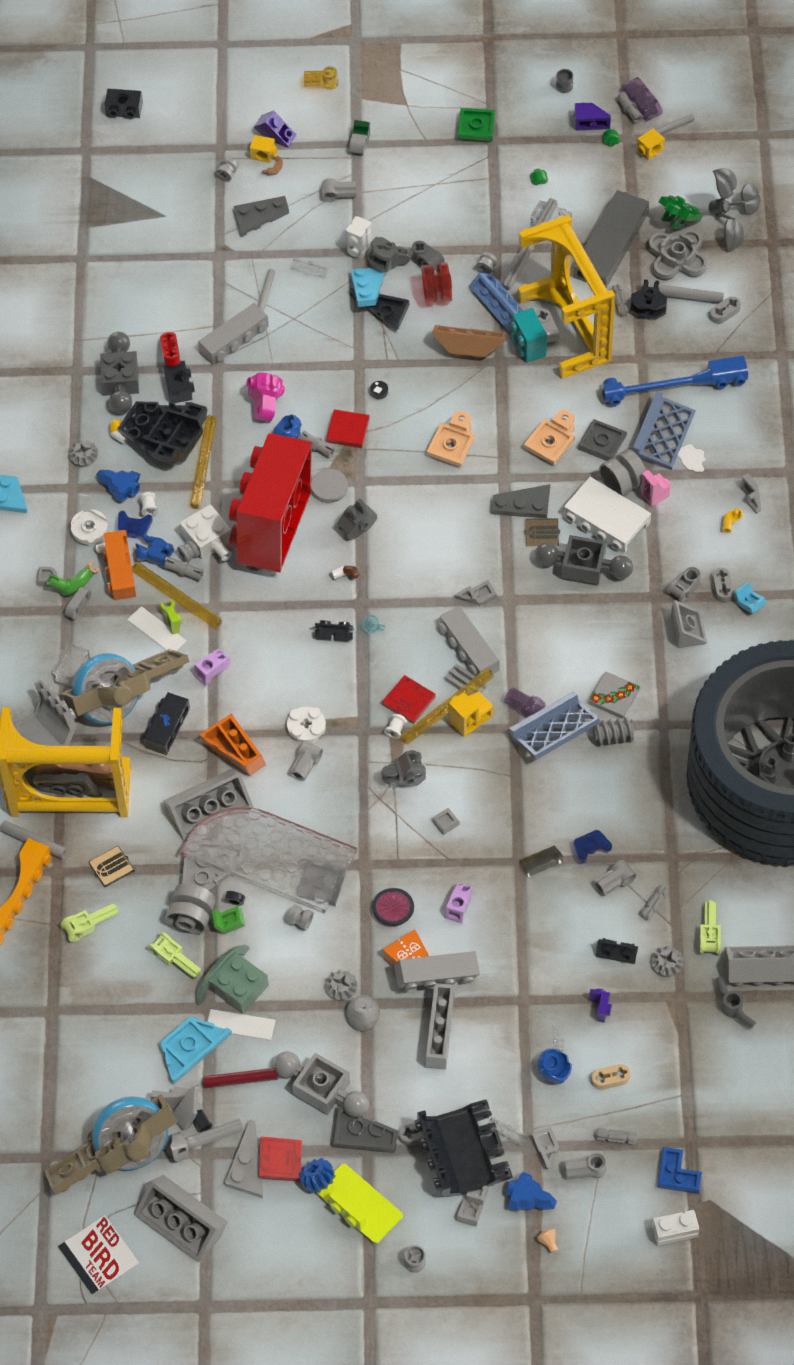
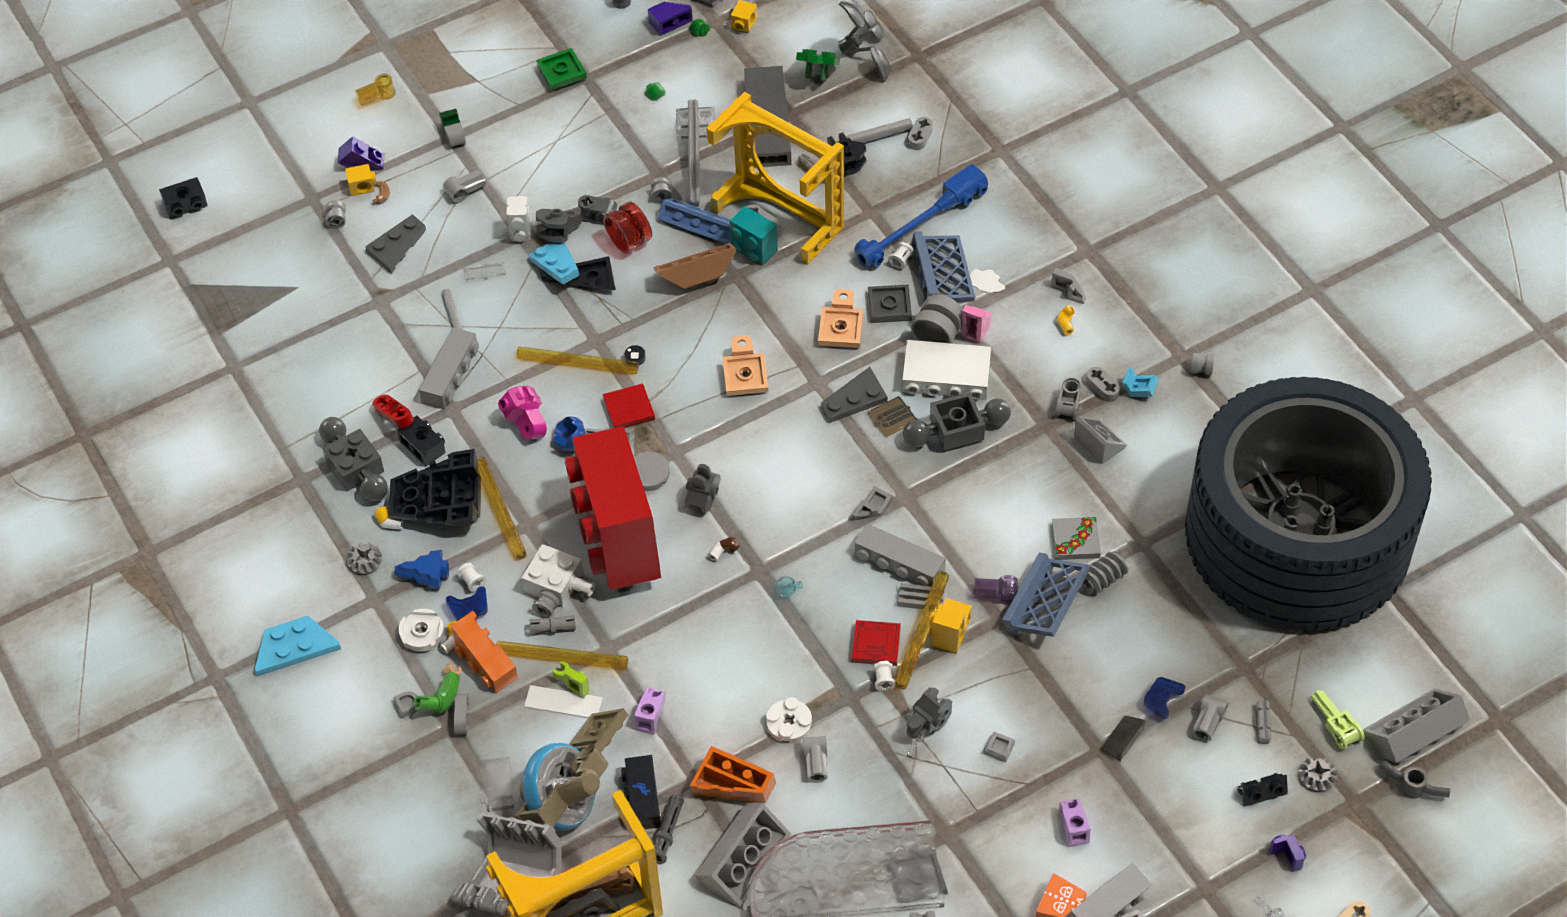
camera: 30 degrees left, 5 degrees down
(155, 552) = (513, 621): blue animal -> none
(160, 763) = (663, 837): none -> dark grey pin
(333, 373) = (577, 360): none -> clear yellow axle
(341, 629) = (745, 613): black hinge -> none
(393, 906) = (1009, 862): clear pink wheel -> none
(632, 407) = (901, 255): none -> white bush
(678, 254) = (840, 102): light grey plant -> none

